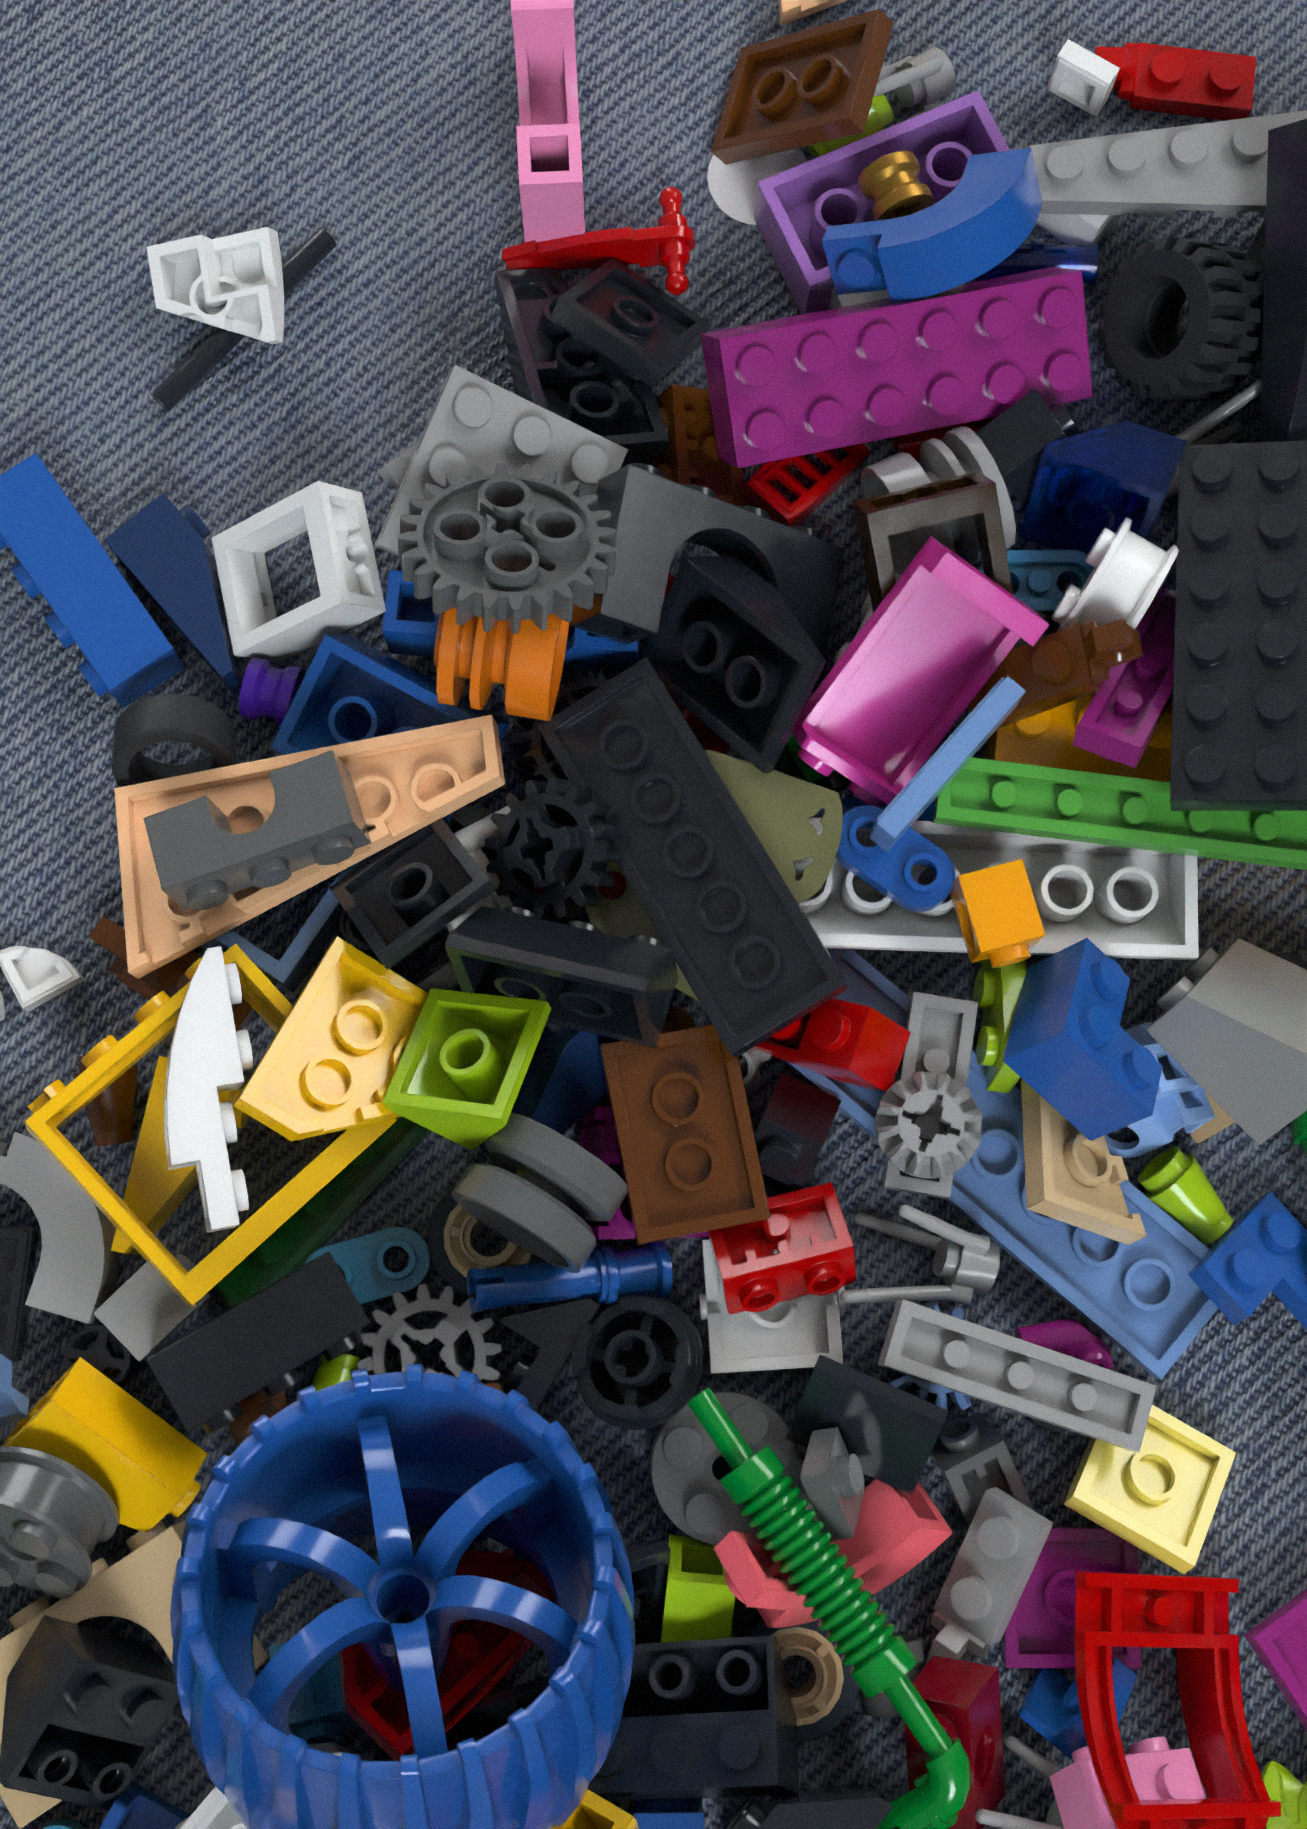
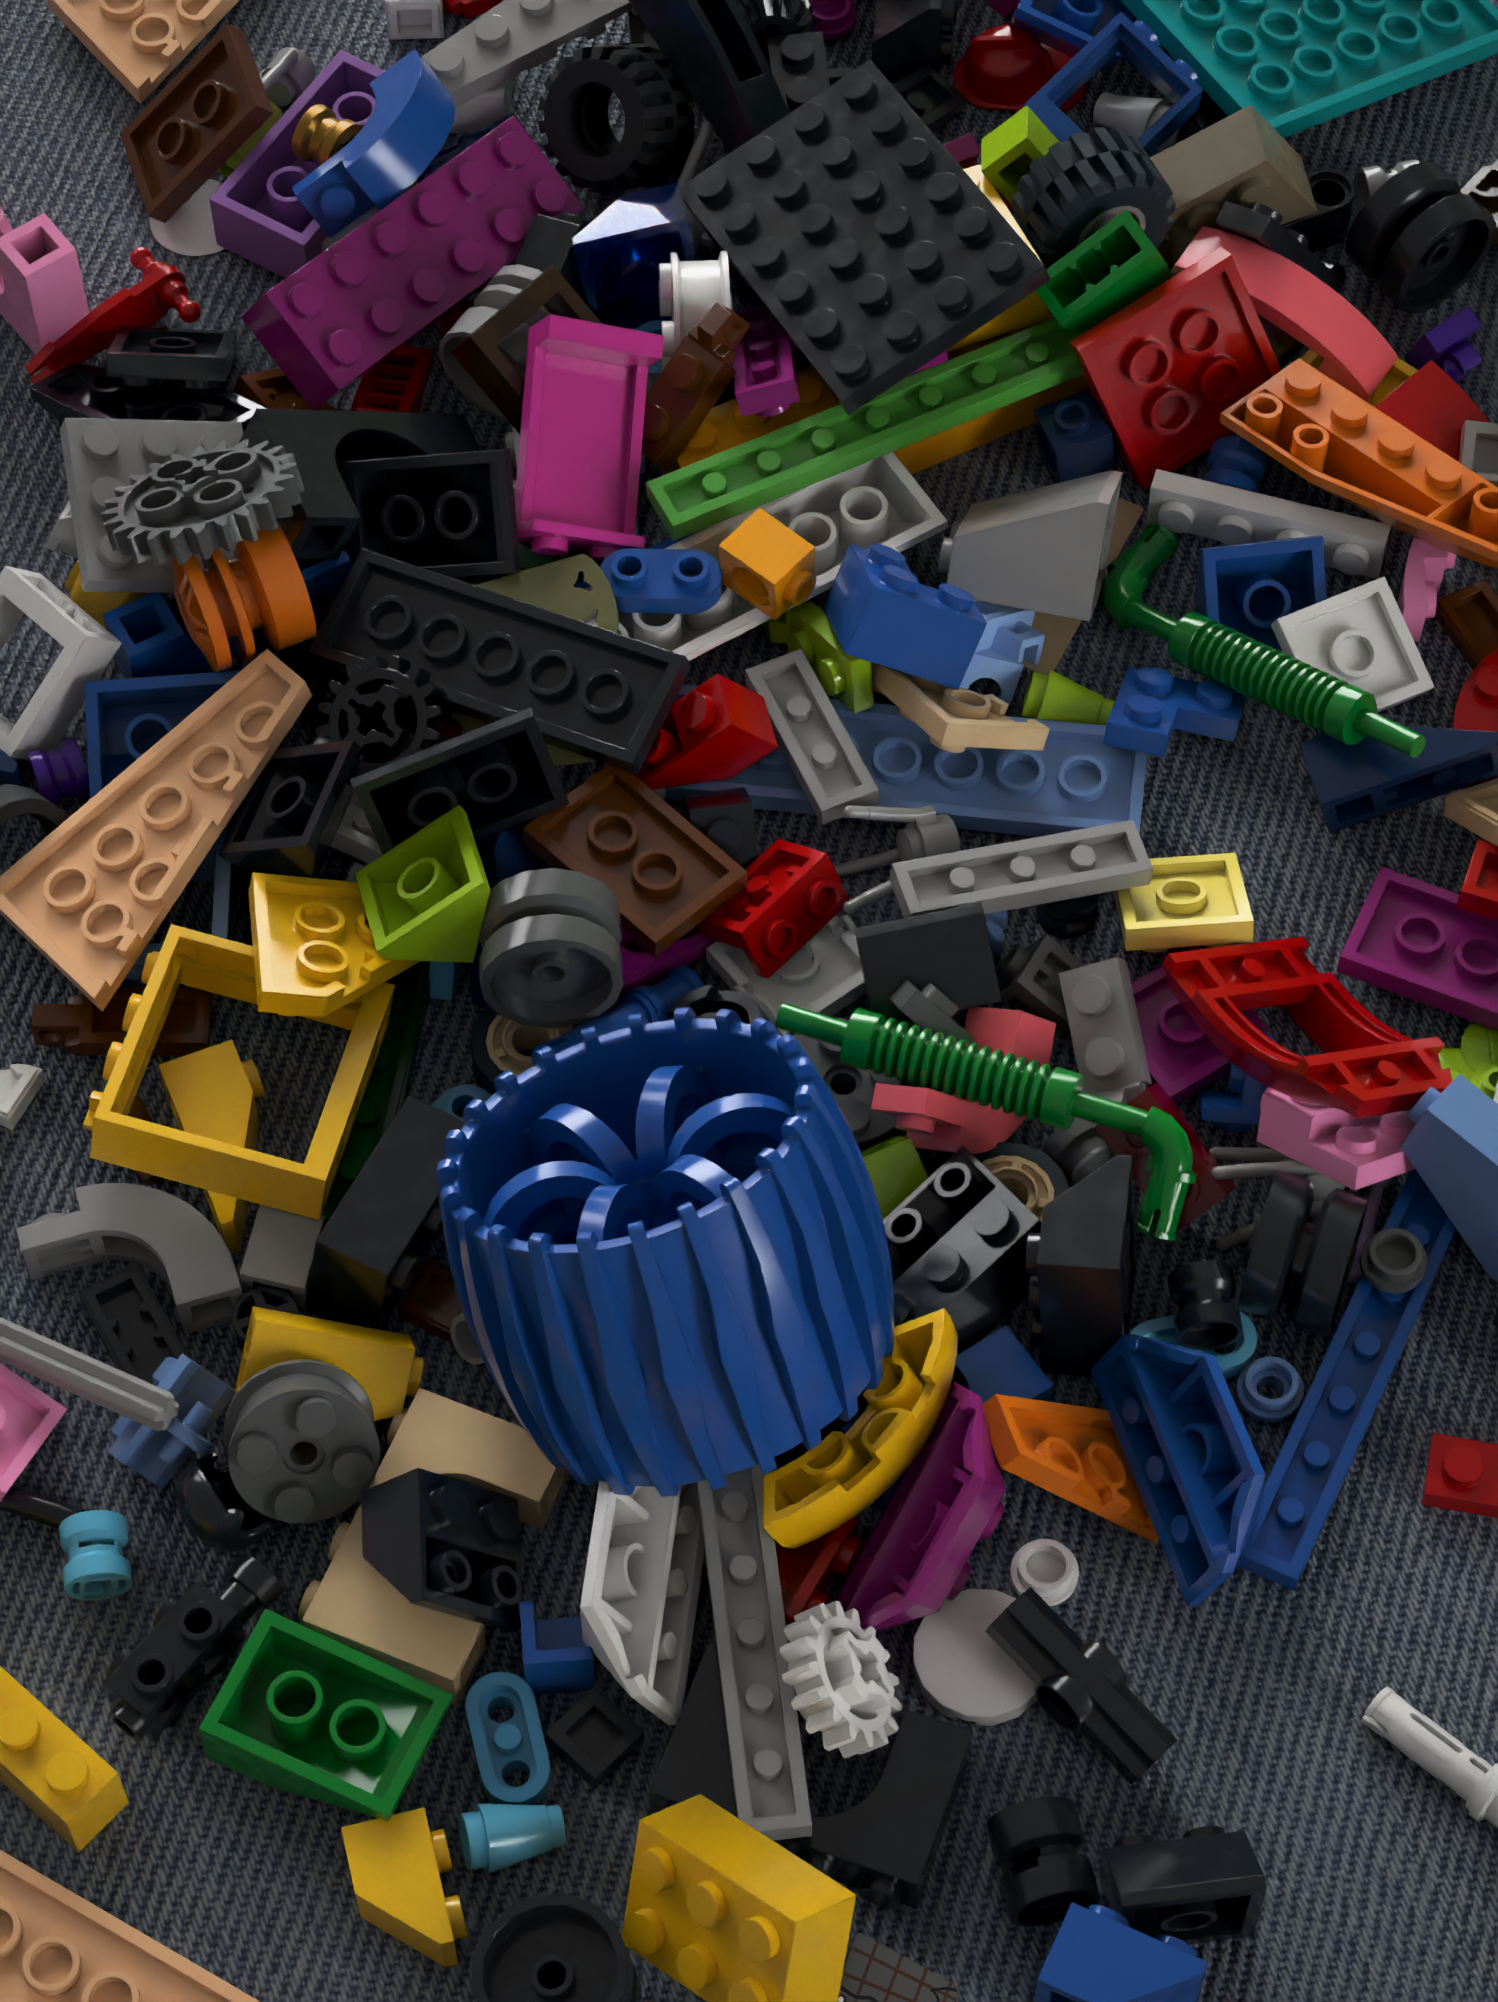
camera: 30 degrees left, 20 degrees down
(202, 1061) = (214, 1012): white slope -> none
(311, 823) = (111, 866): dark grey arch -> none
(900, 1137) = (804, 759): light grey gear -> none
(946, 763) = (653, 476): medium blue tile -> none

